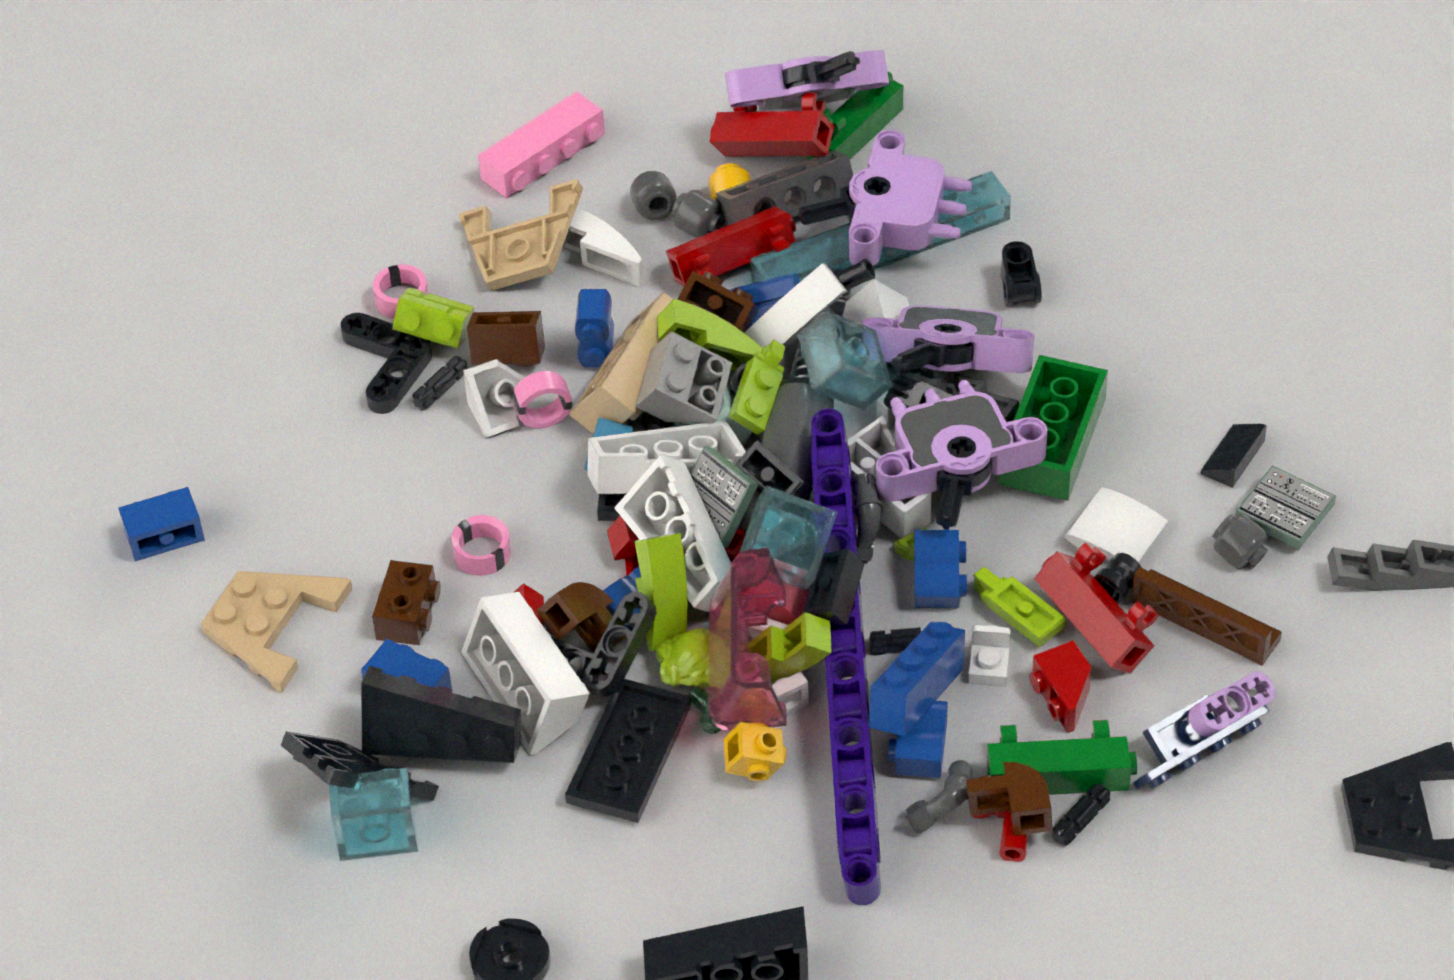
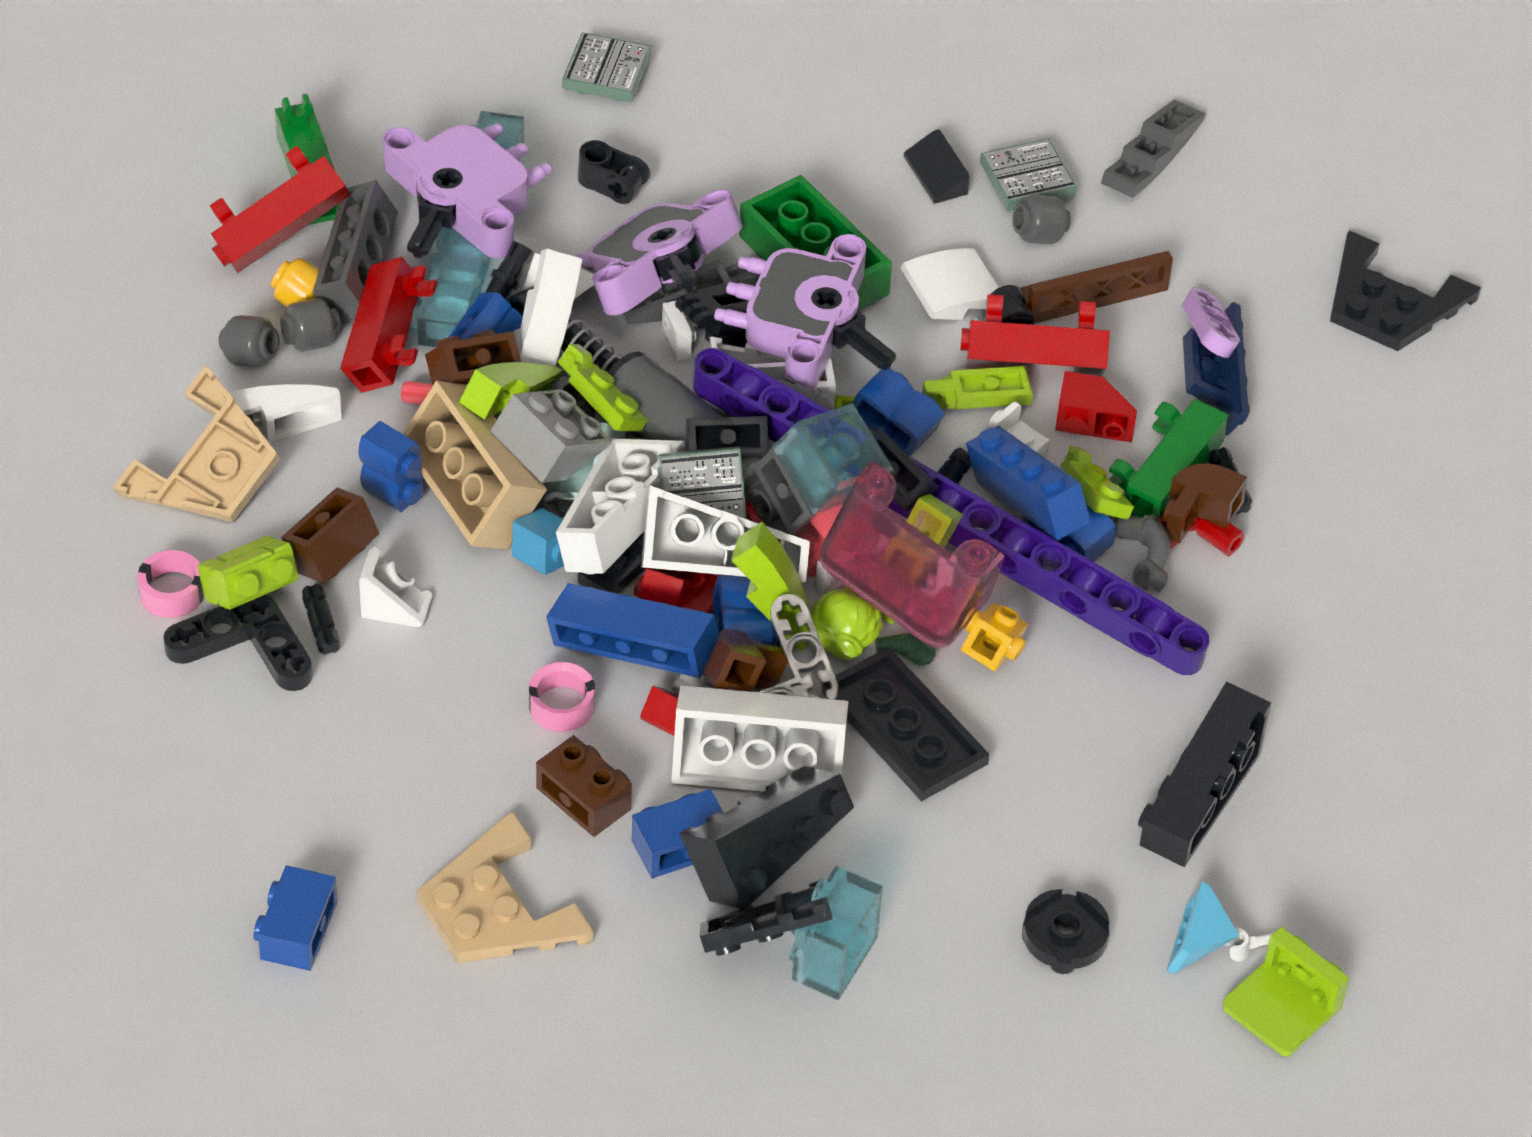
camera: 60 degrees left, 0 degrees up
(536, 385) = (436, 552): bright pink piece -> none
(541, 144) = (91, 381): bright pink brick -> none
(565, 536) = (632, 629): none -> blue brick
(784, 84) = (261, 144): lavender piece -> none
(844, 360) = (639, 316): clear light blue brick -> none
(973, 727) = (1097, 489): none -> lime hinge
(1128, 212) = (606, 67): none -> tile

